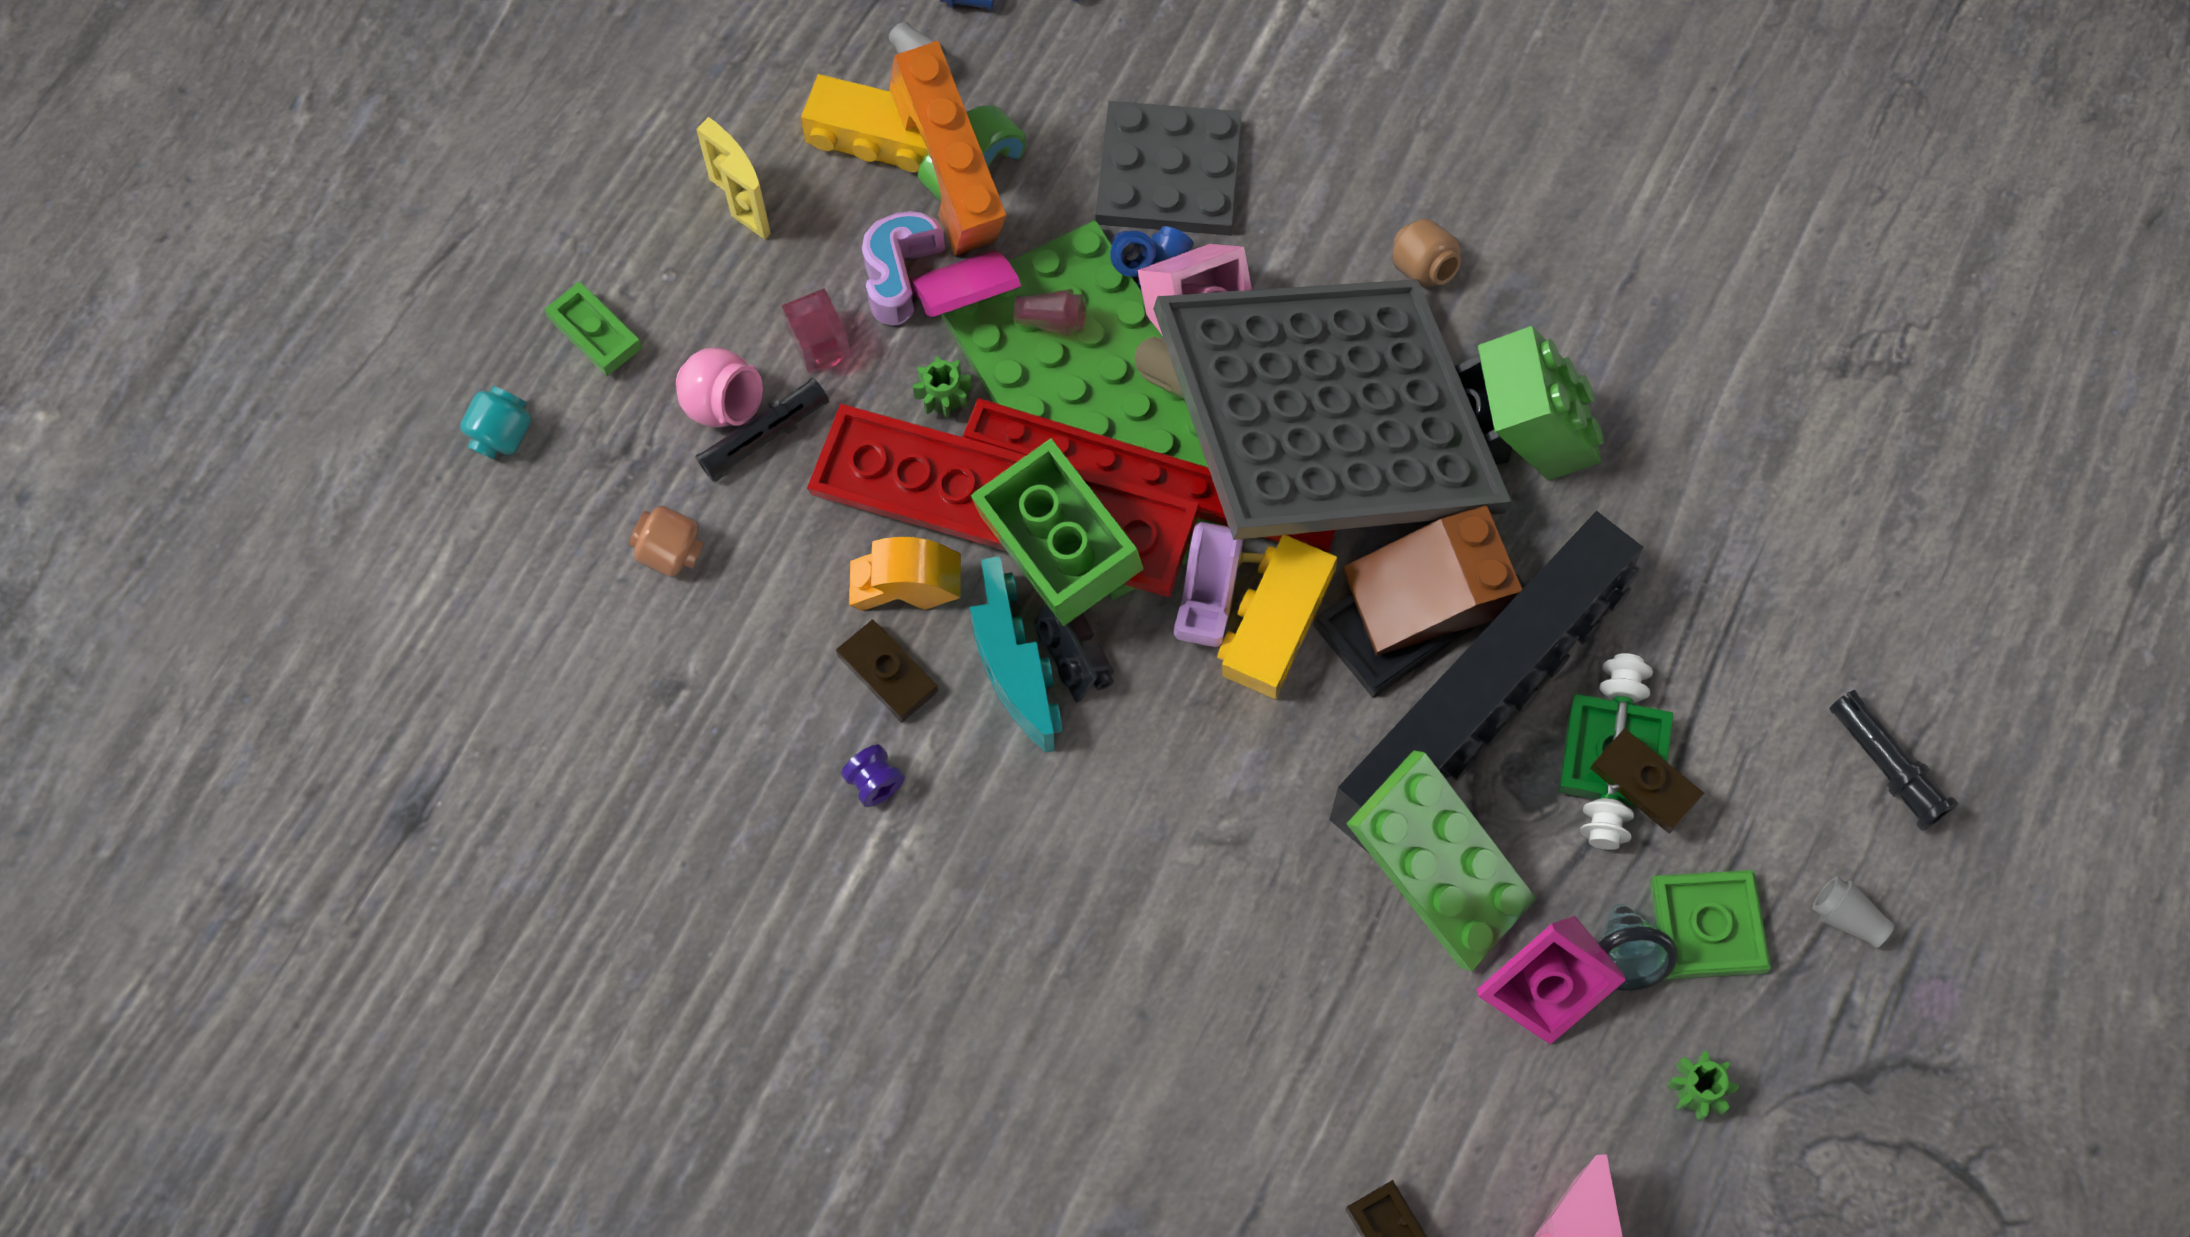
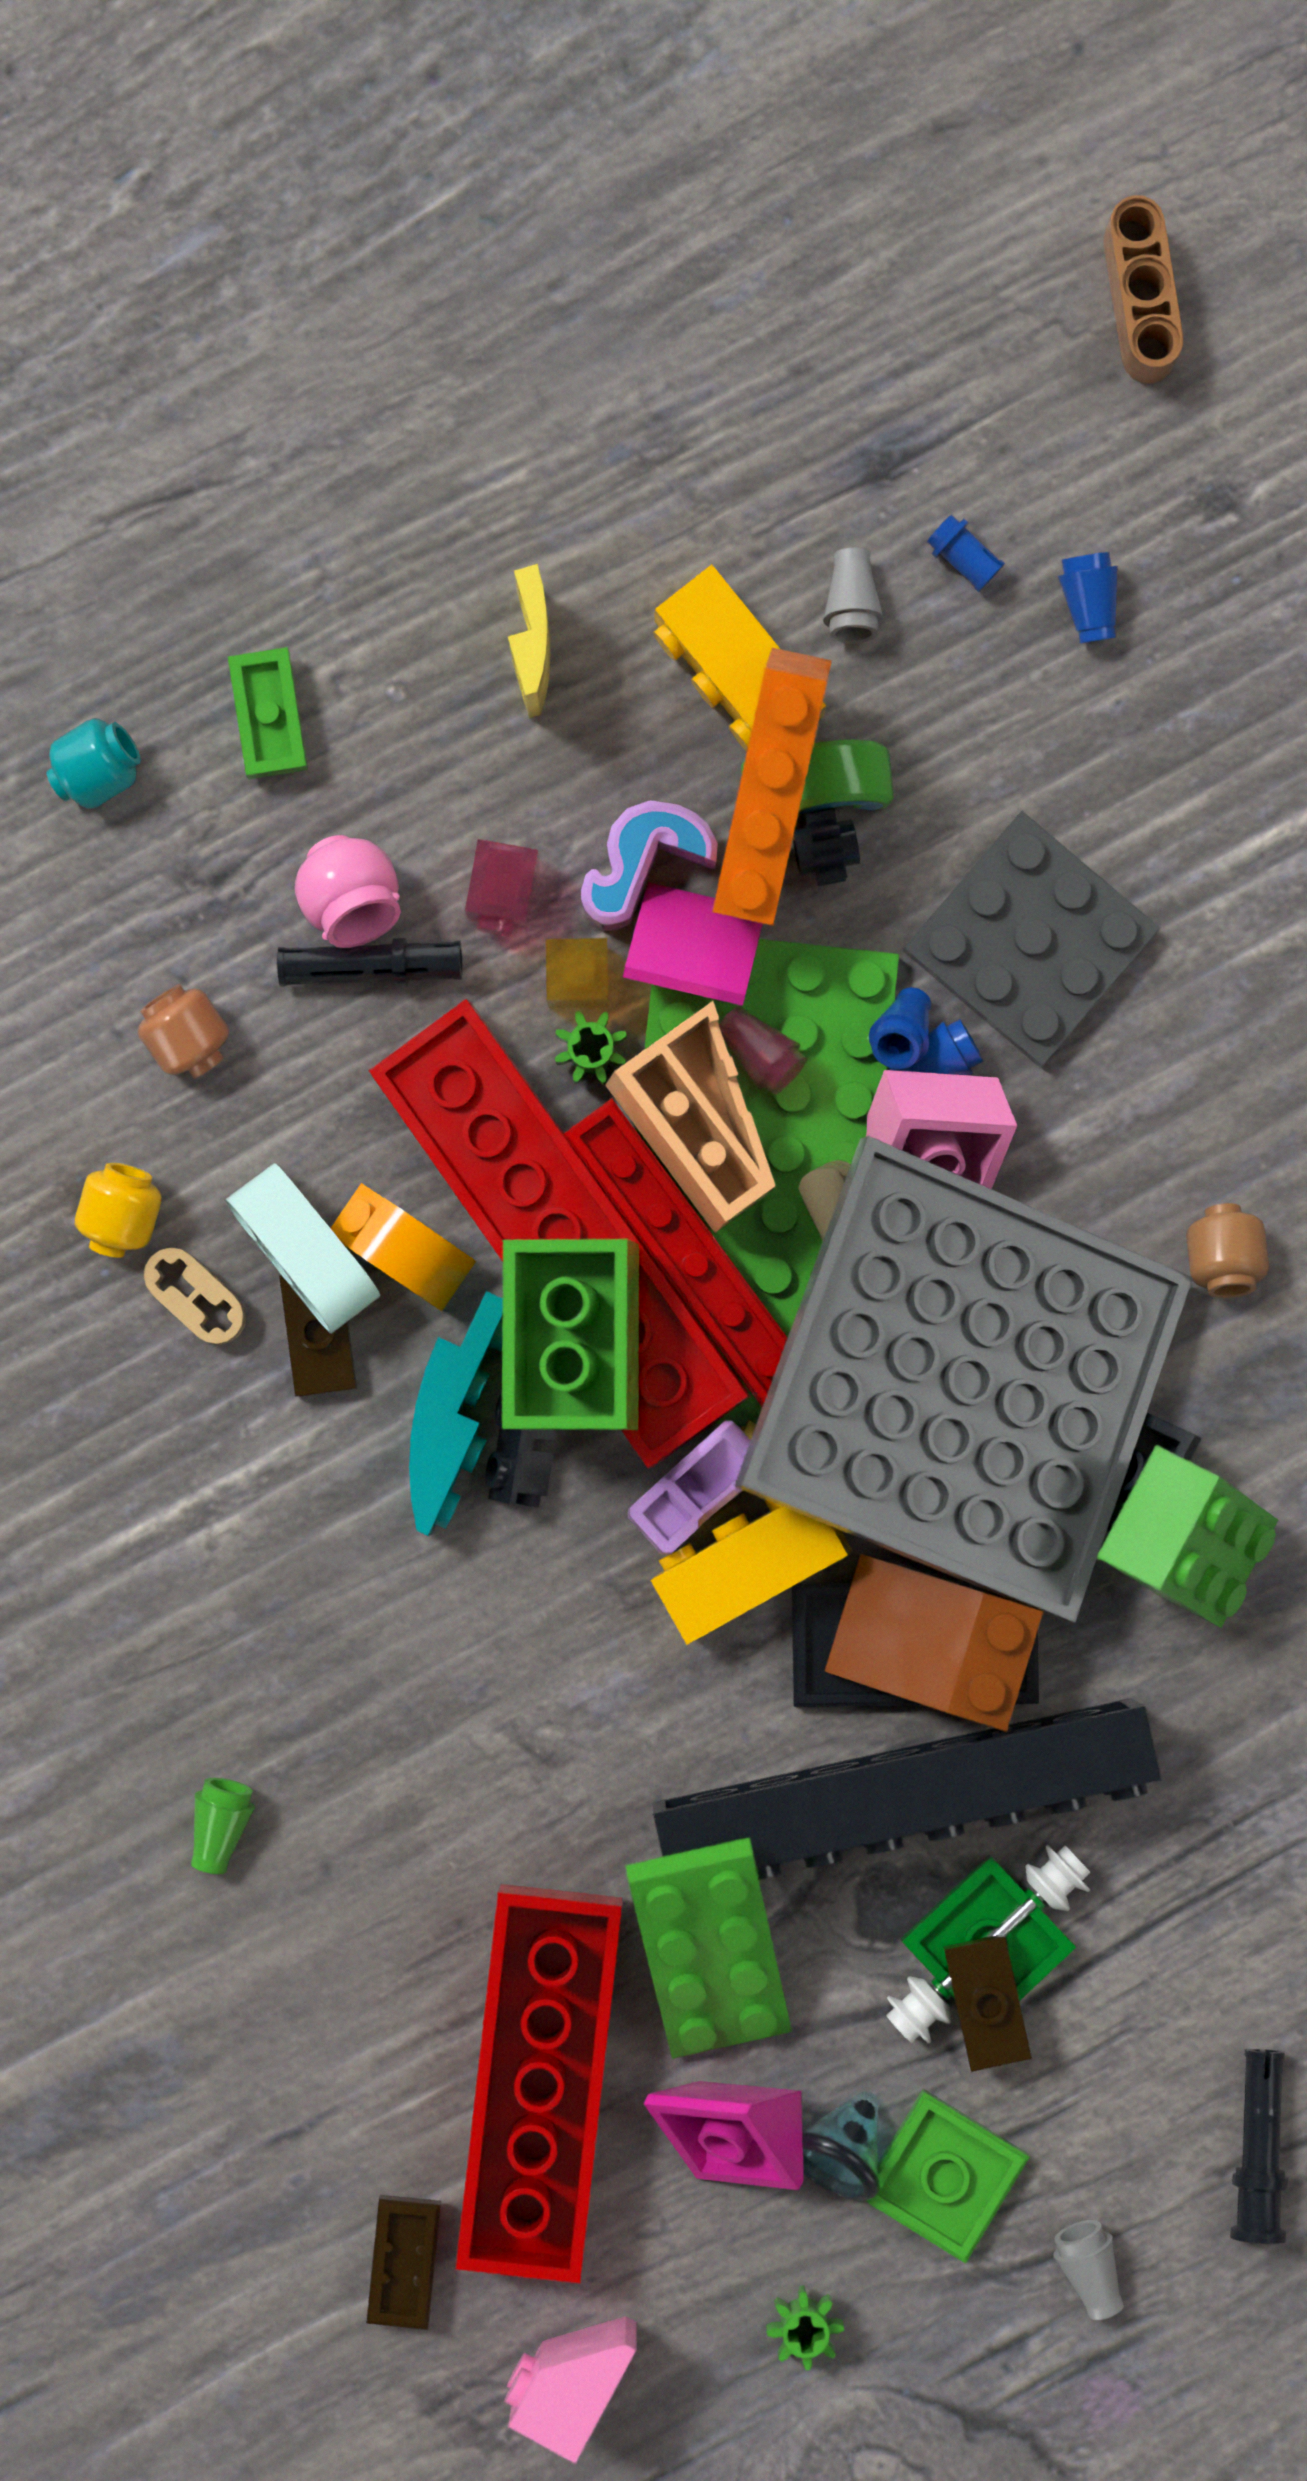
camera: 35 degrees right, 20 degrees up
(696, 675) = (118, 1209): none -> yellow head
(787, 712) = (205, 1285): none -> tan beam
(839, 615) = (302, 1248): none -> light aqua beam
(872, 775) = (224, 1443): dark purple wheel -> none
(901, 346) = (577, 973): none -> clear yellow brick
(1012, 184) = (826, 847): none -> black gear
(1041, 369) = (695, 1118): none -> light nougat wedge
(1046, 1026) = (219, 1822): none -> bright green cone
(1398, 1042) = (539, 2083): none -> red brick

